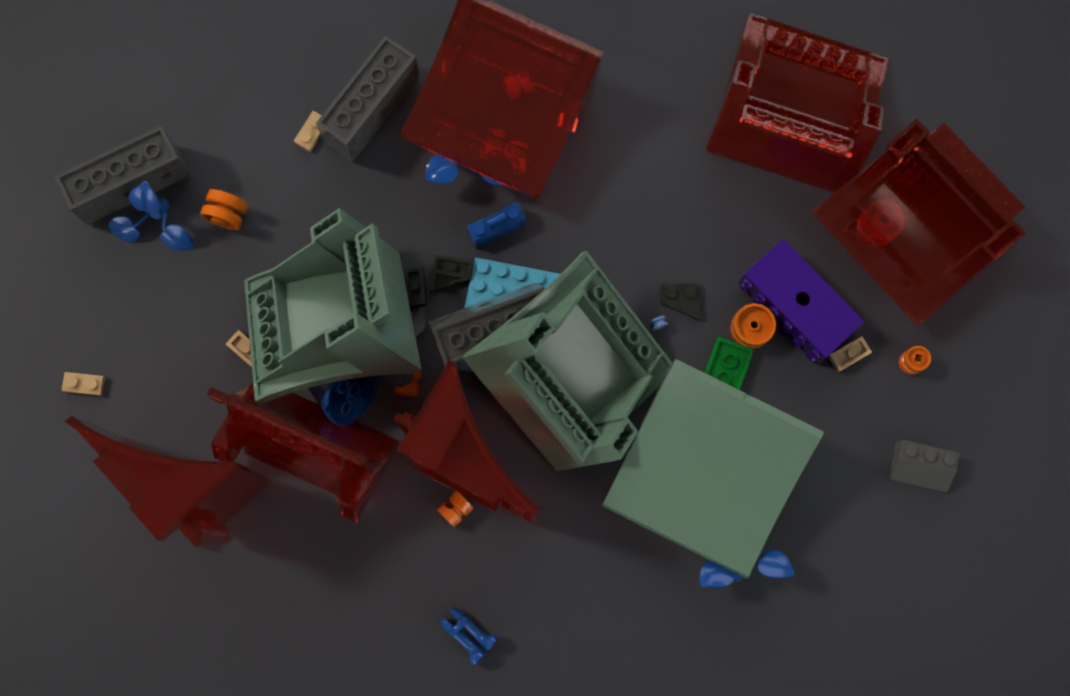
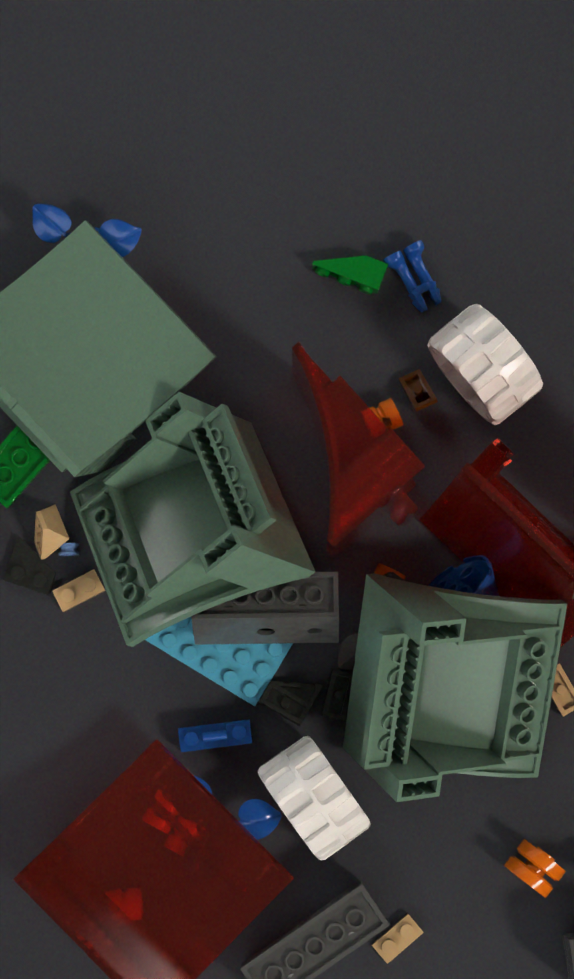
camera: 150 degrees left, 5 degrees up
(385, 576) = (485, 364): none -> white wheel
(405, 196) = (313, 798): none -> white wheel
(434, 541) = (417, 390): none -> reddish brown slope
(514, 622) = (359, 271): none -> green slope
(641, 294) = (78, 590): none -> tan plate
(678, 330) = (49, 531): none -> tan slope

